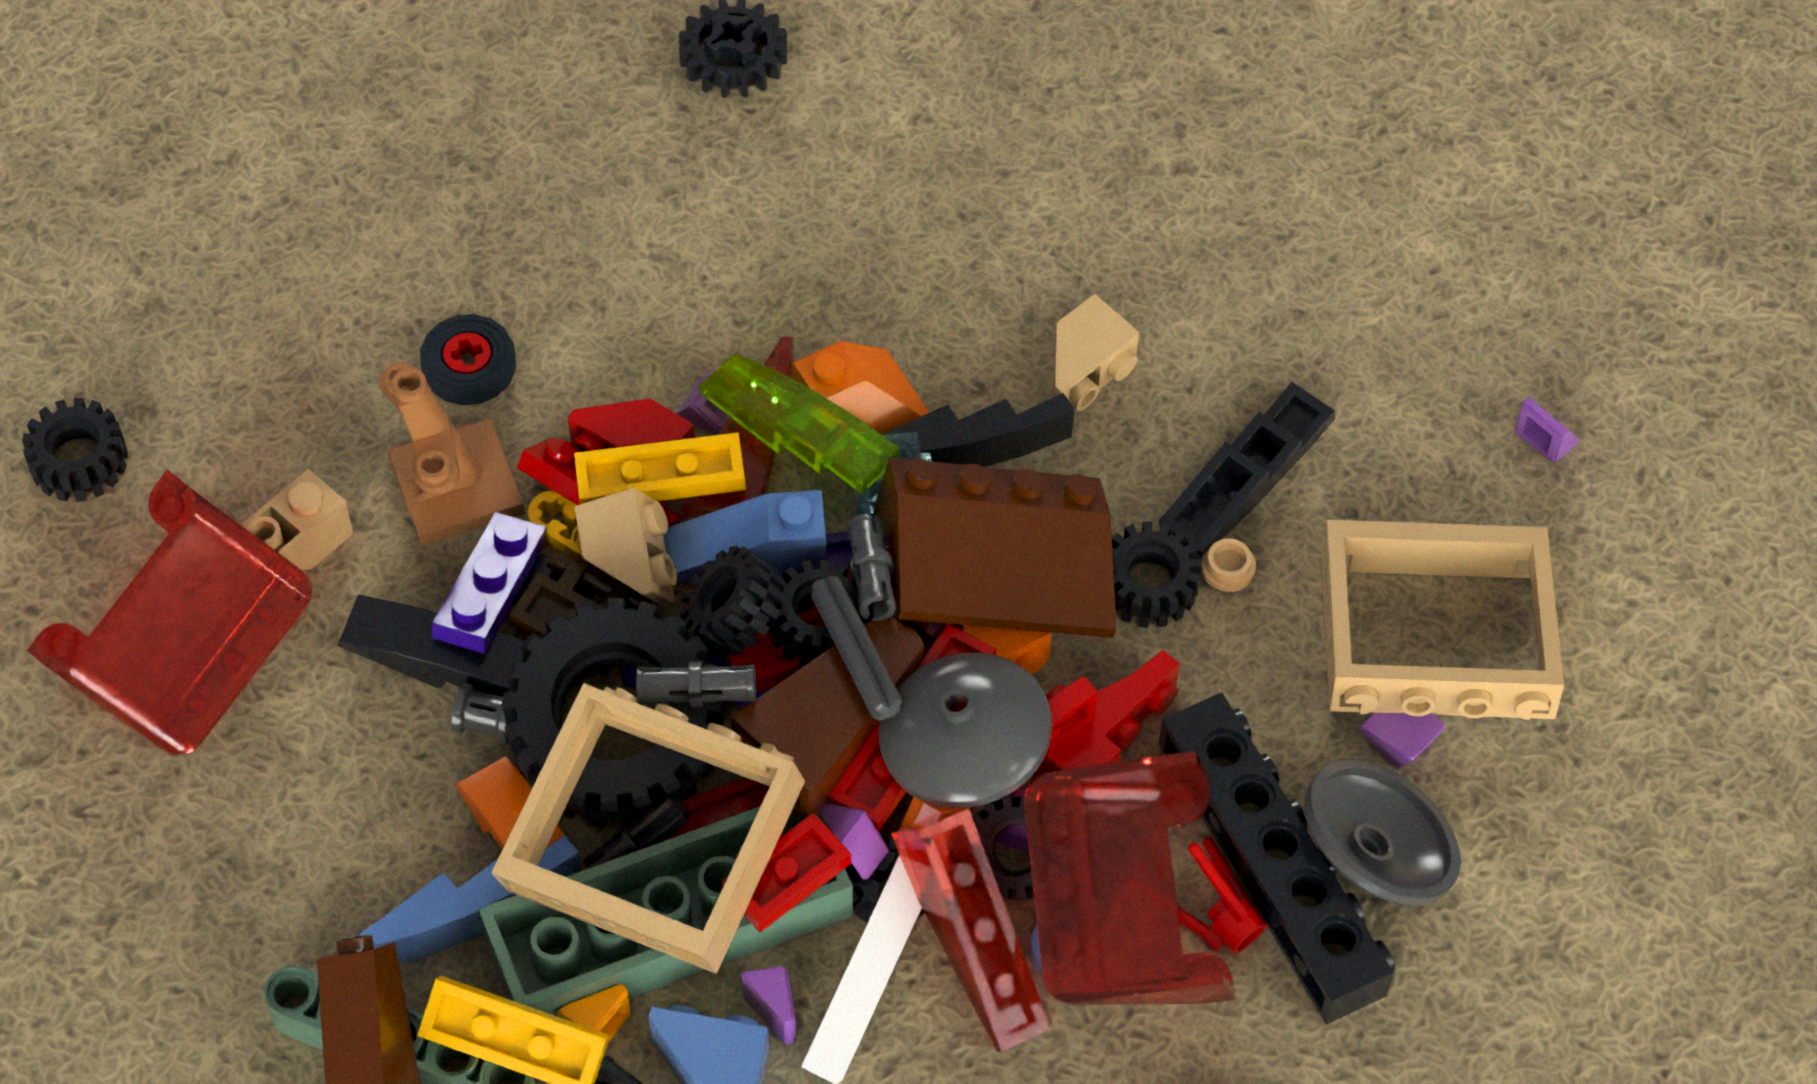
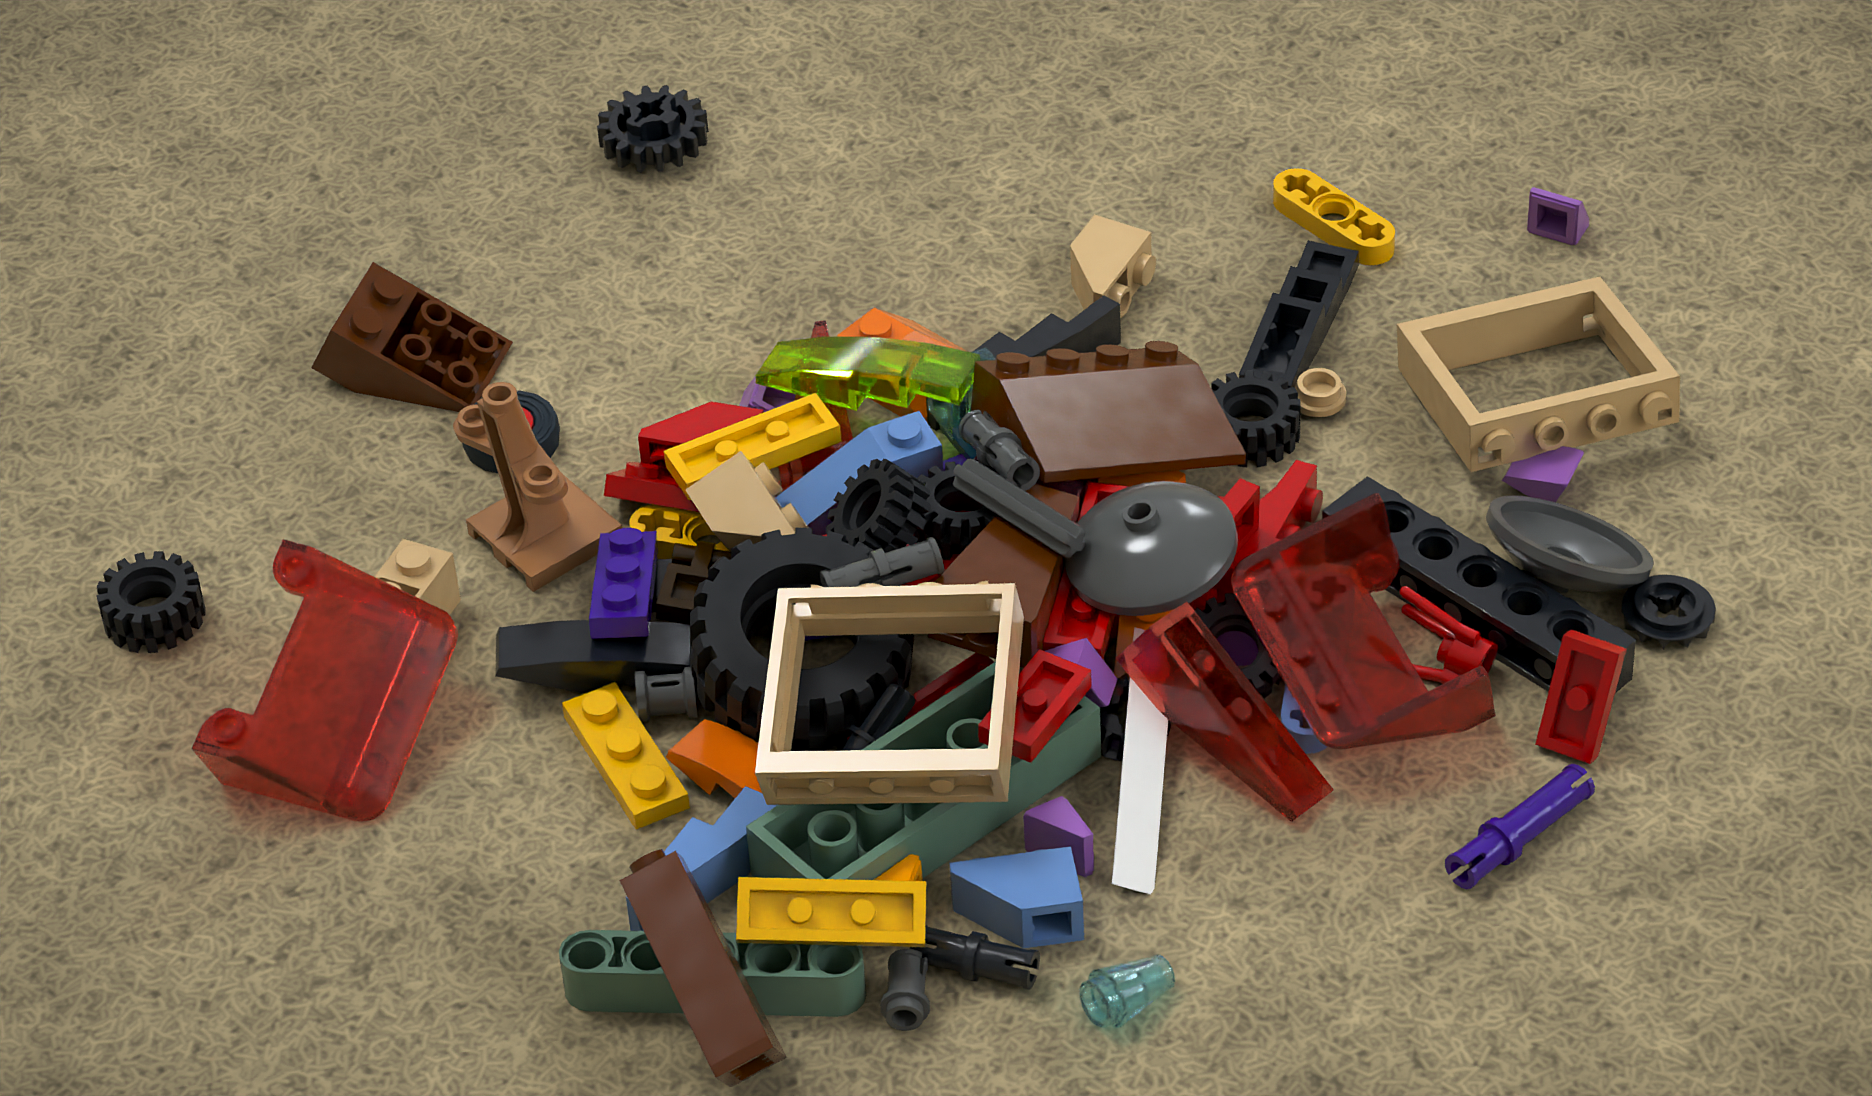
camera: 15 degrees left, 15 degrees down
(414, 235) = (409, 346): none -> reddish brown slope
(426, 764) = (625, 755): none -> yellow plate
(1313, 1020) = (1580, 696): none -> red plate
(1334, 335) = (1308, 197): none -> yellow beam
(1457, 911) = (1665, 594): none -> black gear

